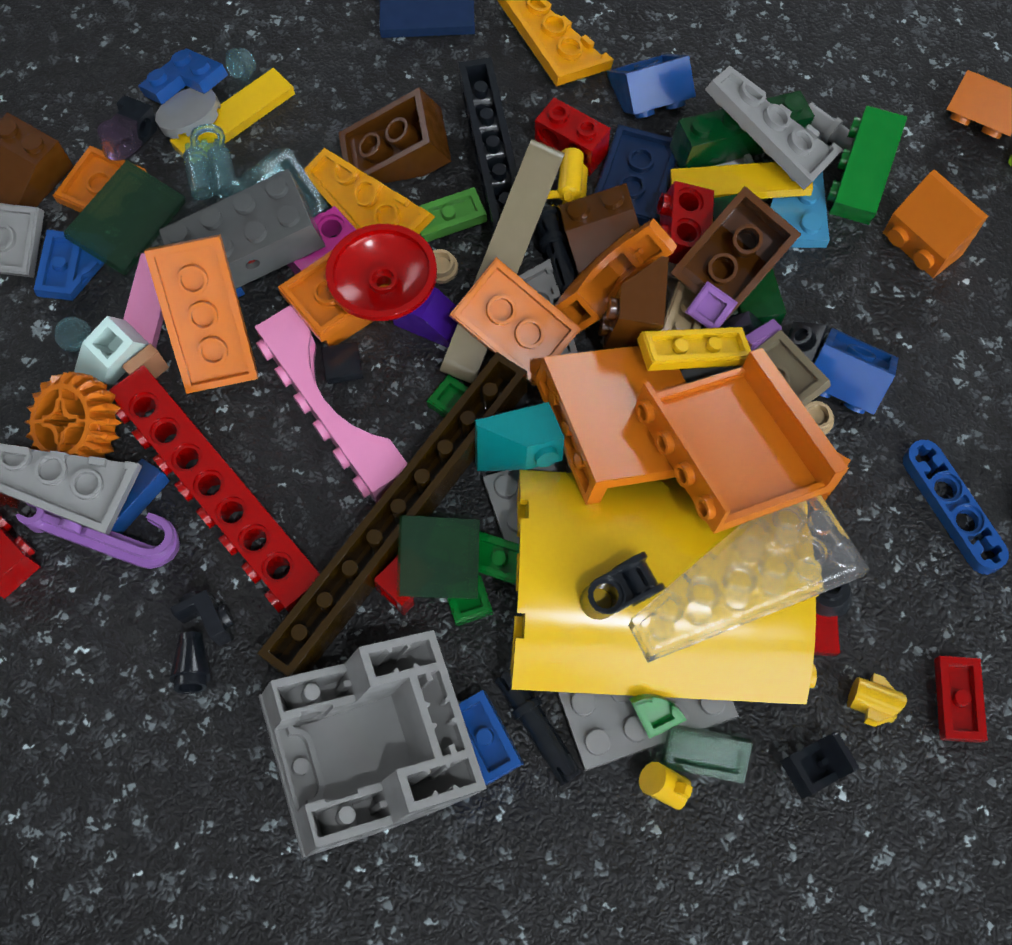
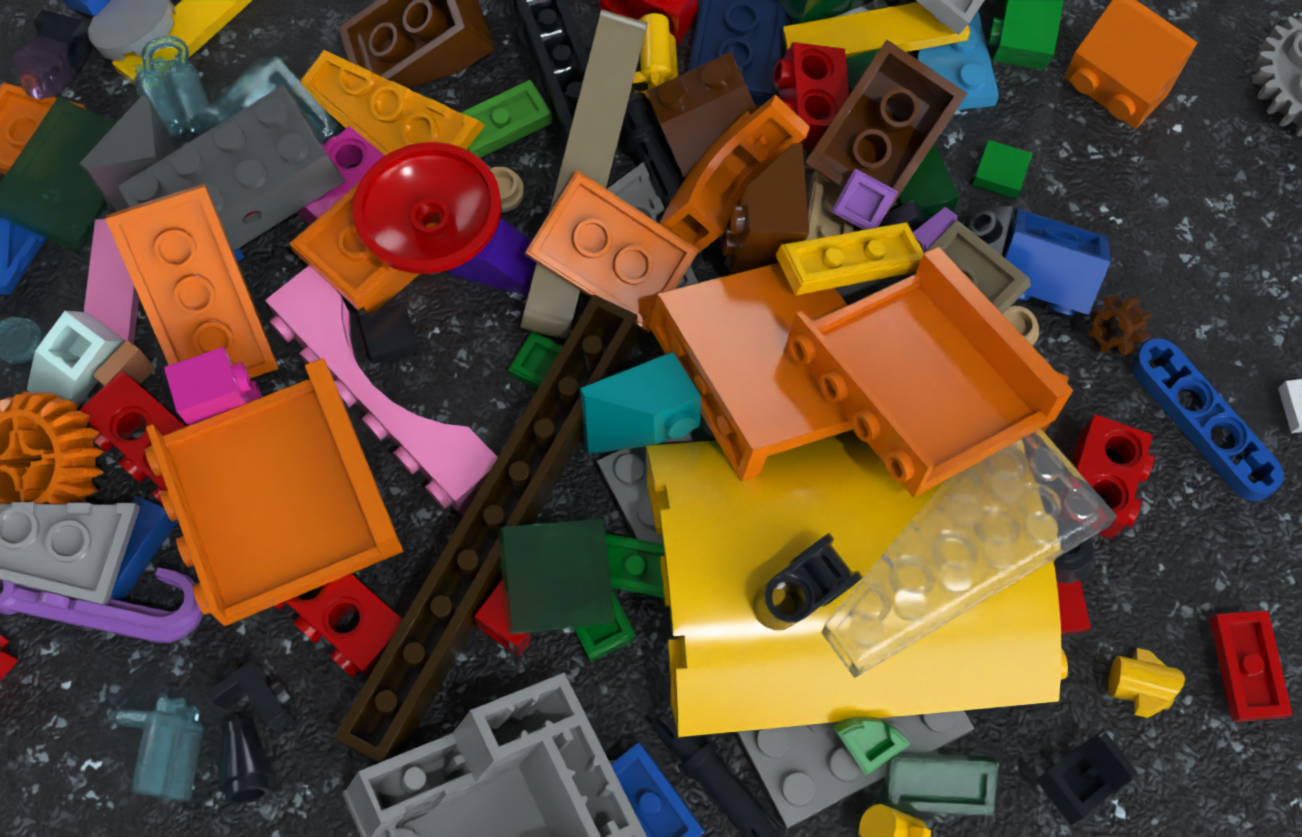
camera: 10 degrees left, 0 degrees up
(136, 645) = (166, 750): none -> clear light blue piece
(170, 203) = (127, 150): none -> dark grey slope
(208, 392) = (209, 385): none -> dark pink brick
(238, 472) = (272, 498): none -> orange panel
(824, 296) = (1002, 169): none -> green tile
(872, 542) = (1111, 479): none -> red brick
(888, 427) = (1107, 328): none -> reddish brown gear

